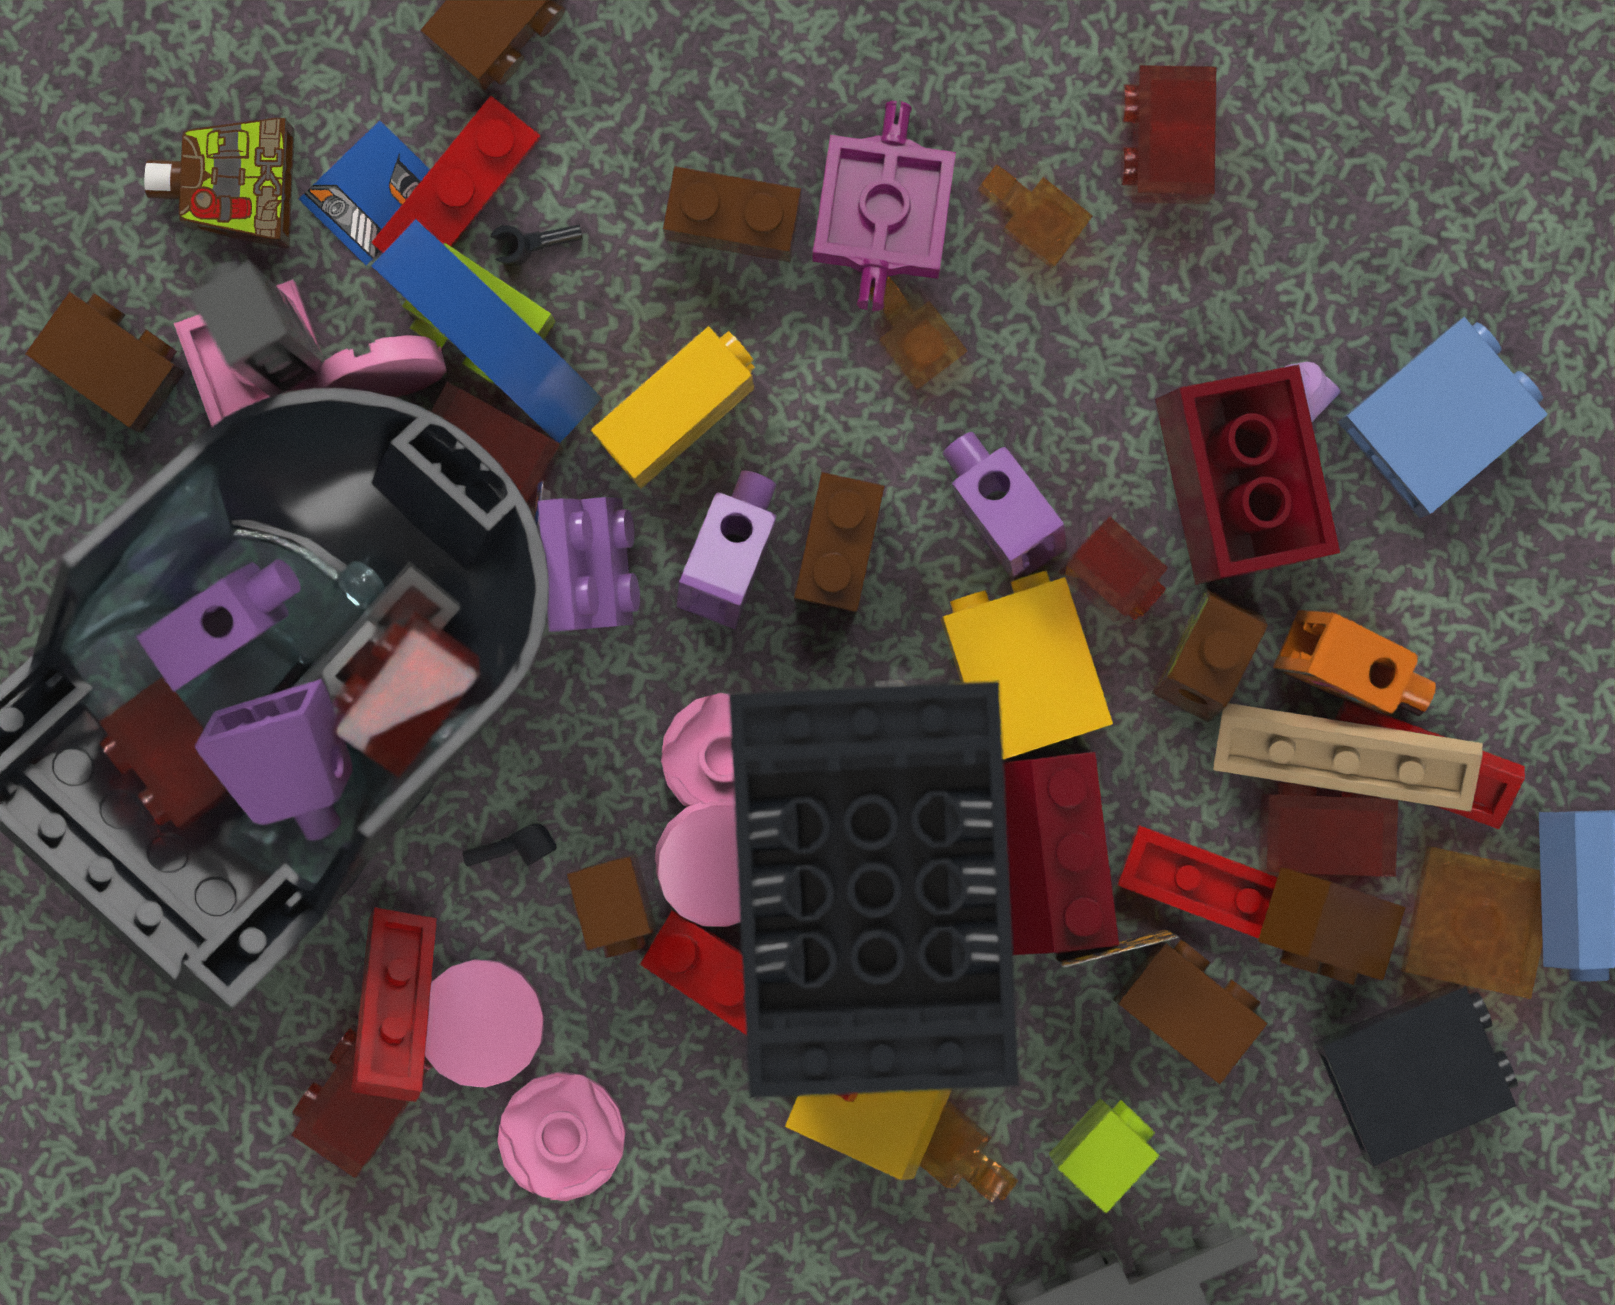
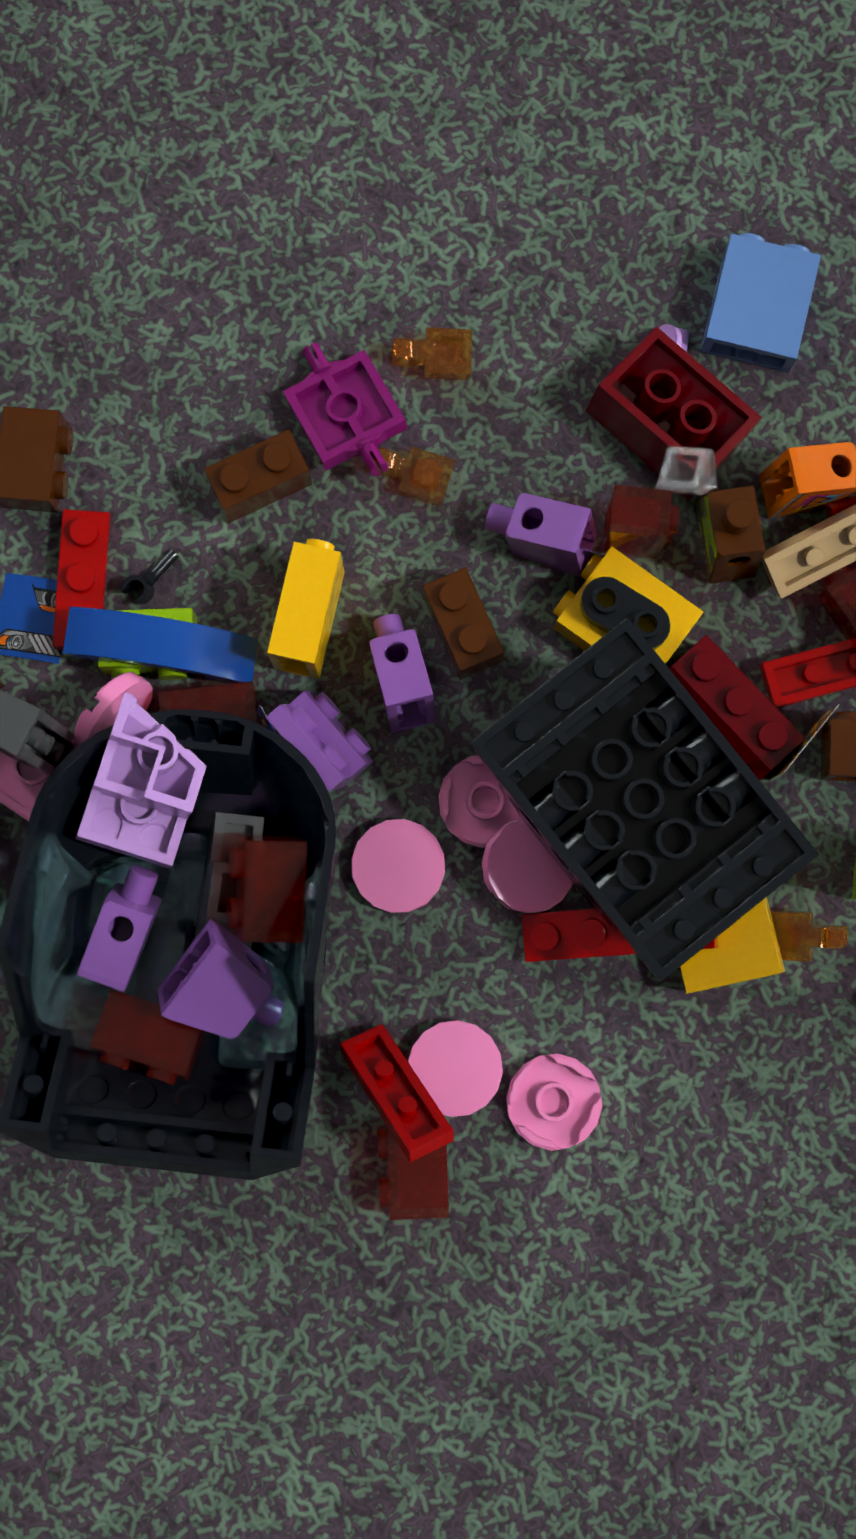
camera: 40 degrees left, 5 degrees down
(346, 484) = (141, 789): none -> lavender slope
(531, 842) = (406, 936): black hand -> none
(577, 759) = (398, 866): none -> bright pink tile
(612, 905) = (486, 933): reddish brown brick -> none
(1021, 665) = (626, 604): none -> black plate
(1171, 134) = (483, 252): clear red brick -> none
(1203, 559) = (688, 471): none -> clear slope

